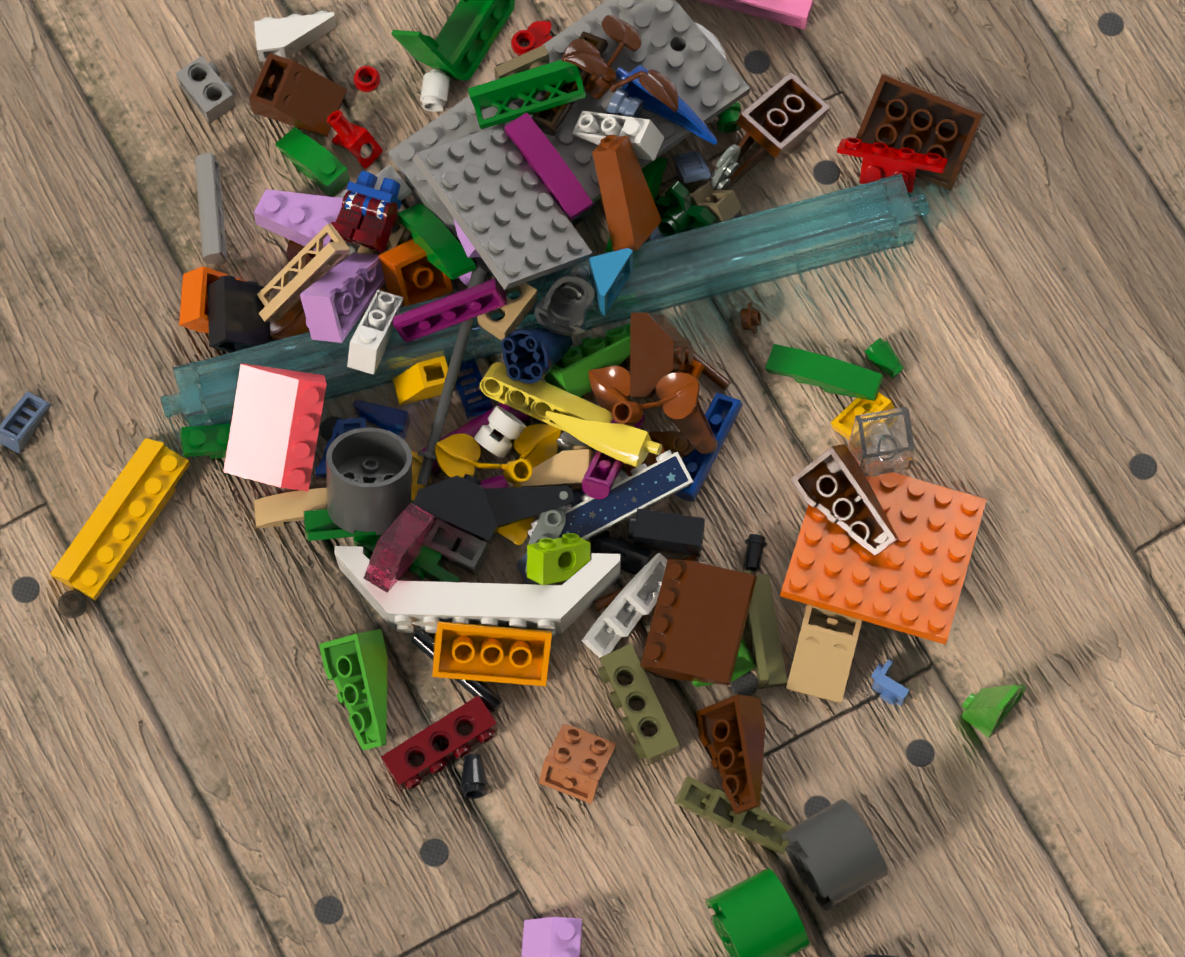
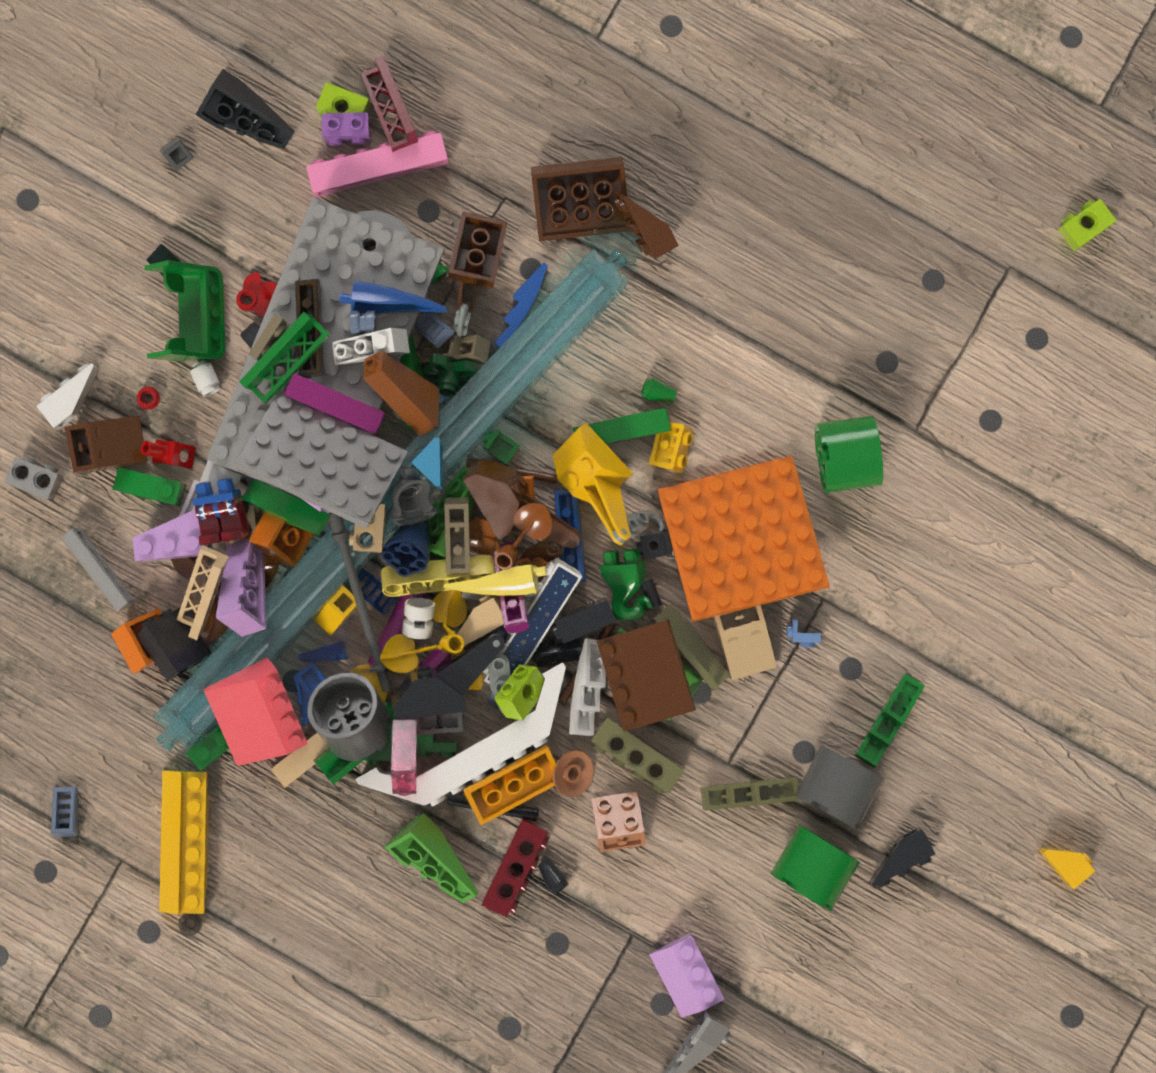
camera: 30 degrees left, 15 degrees up
(373, 332) = (284, 603): white slope -> none
(450, 310) = (330, 559): magenta brick -> none
(569, 690) = (580, 774): none -> nougat dish
(590, 368) = (457, 535): none -> dark tan slope
(603, 77) = (315, 311): reddish brown plant -> none
(689, 318) = (500, 446): none -> green bracket
(734, 520) = (624, 581): none -> green hips
(735, 739) = (723, 743): reddish brown wedge -> none
(750, 318) = (544, 418): reddish brown plate -> none
(769, 398) = (595, 475): none -> yellow slope
(790, 515) = (661, 539): none -> black brick
(807, 188) = (525, 299): none -> blue slope
(842, 492) = (694, 519): reddish brown wedge -> none
(882, 161) = (575, 239): red bracket -> none
(882, 441) = (697, 463): clear slope -> none
(931, 826) = (889, 720): none -> green slope
(971, 191) = (652, 234): none -> reddish brown slope
(991, 706) = (887, 609): bright green wedge -> none
(1046, 522) = (849, 454): none -> green brick

